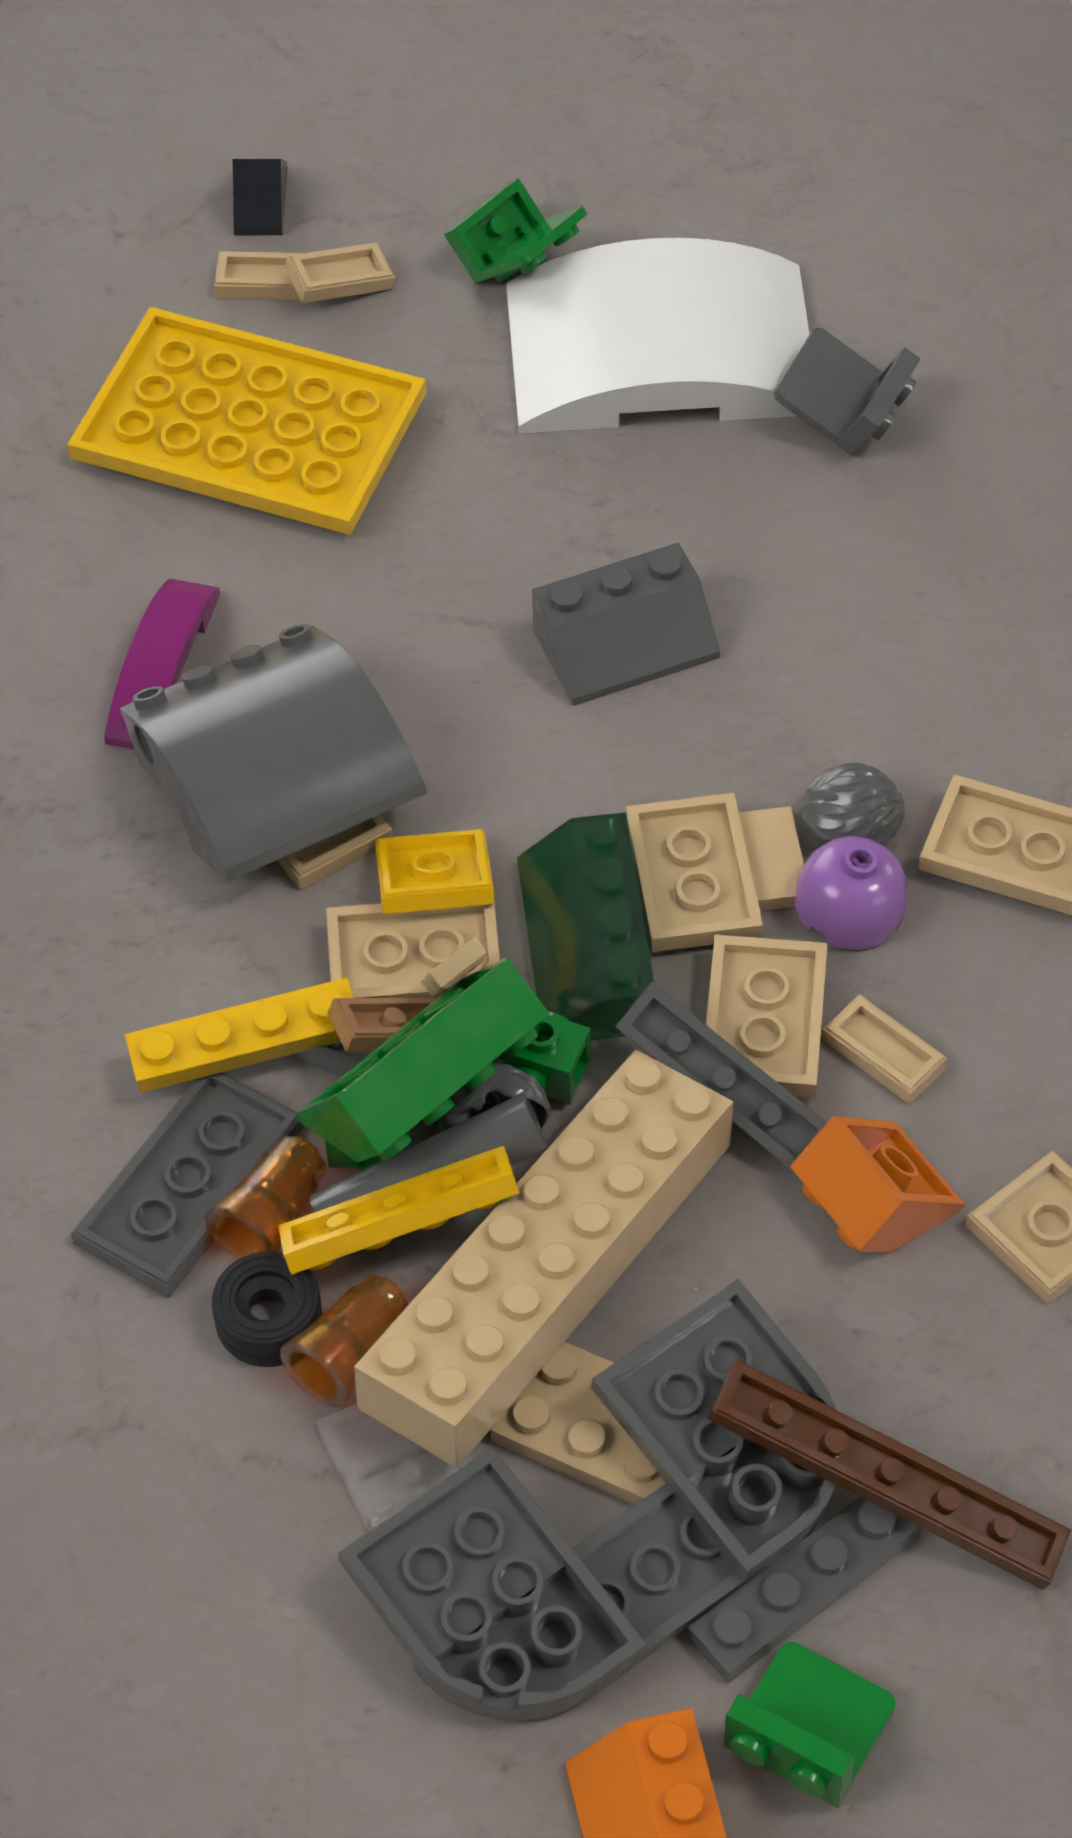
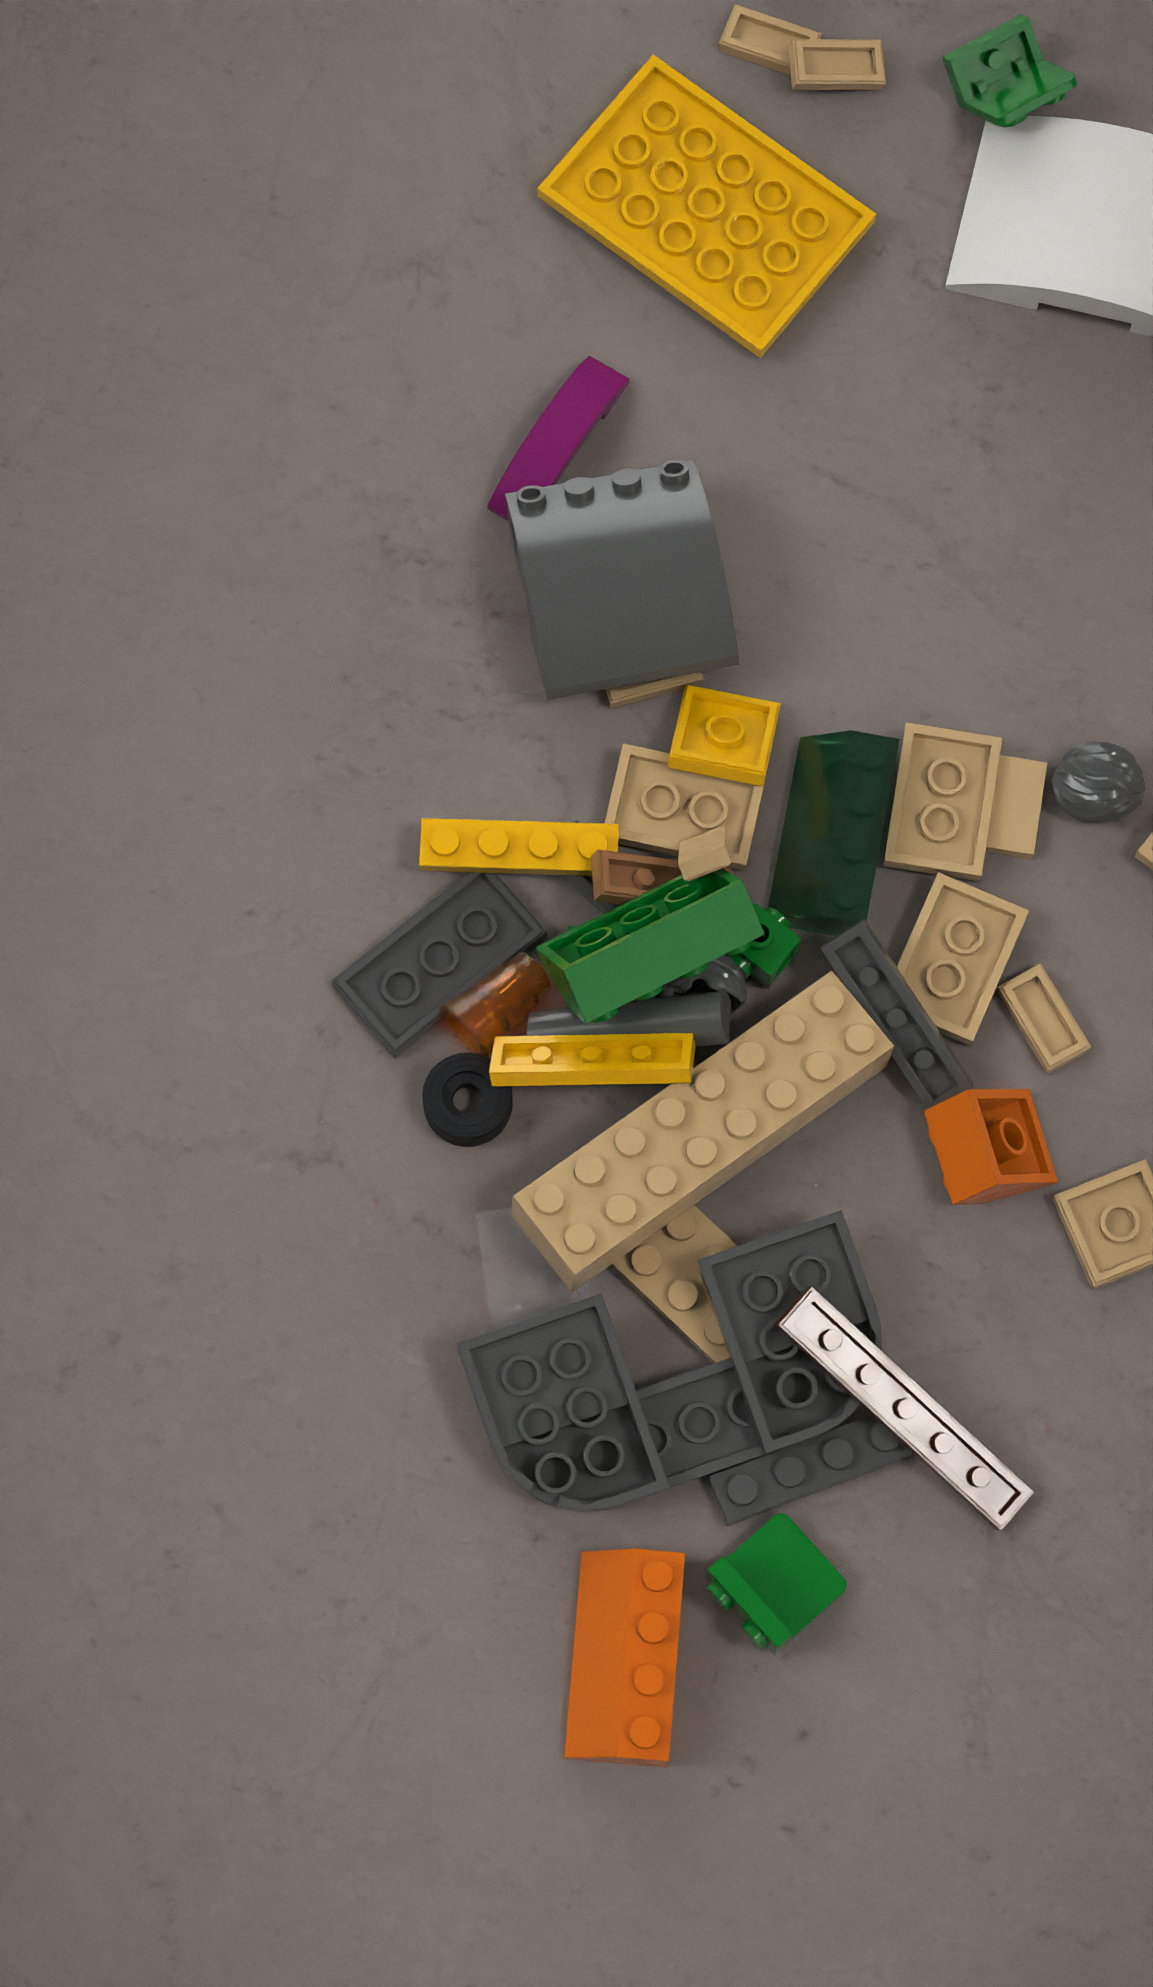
camera: 15 degrees right, 20 degrees up
(326, 1351) = (522, 1149): clear orange plant -> none
(624, 623) = (967, 535): dark grey slope -> none
(852, 893) = (1067, 866): medium lavender cylinder -> none

